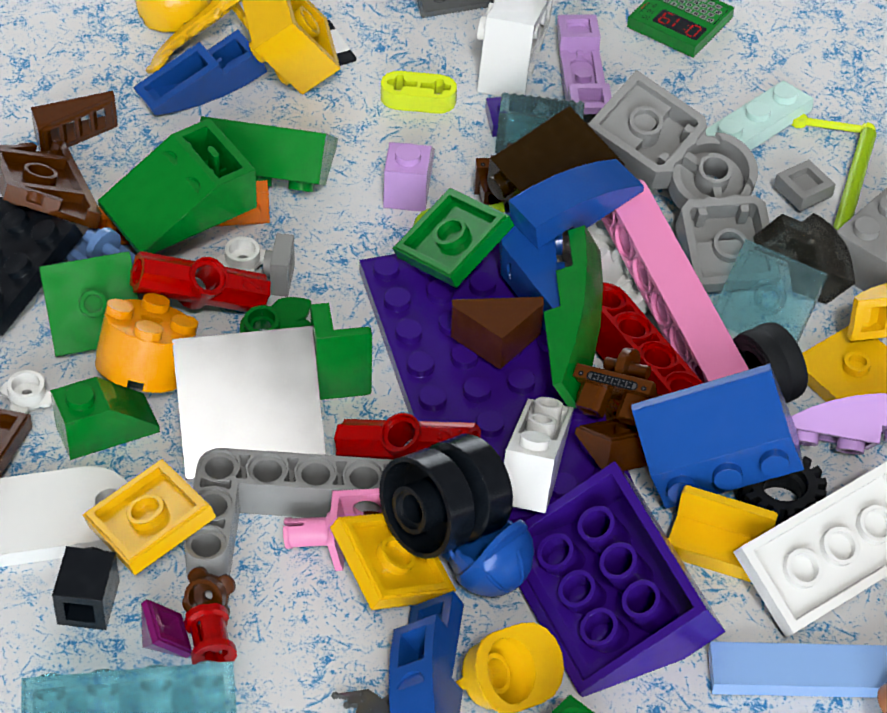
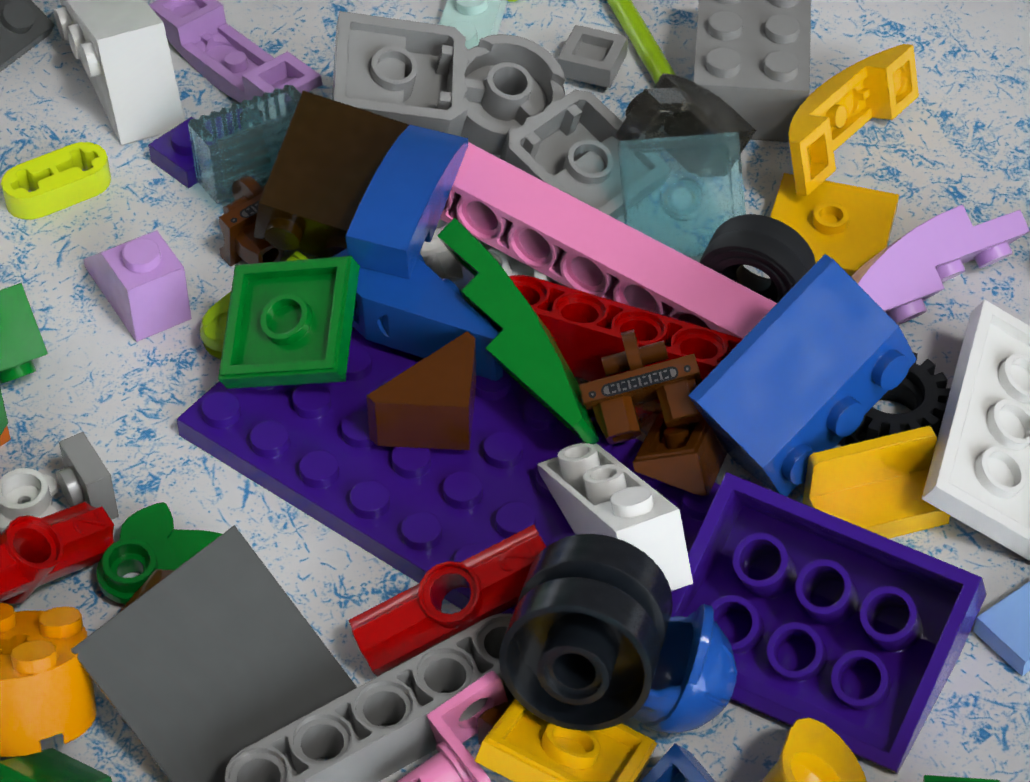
camera: 35 degrees left, 0 degrees up
(341, 356) = (288, 542): green panel -> none

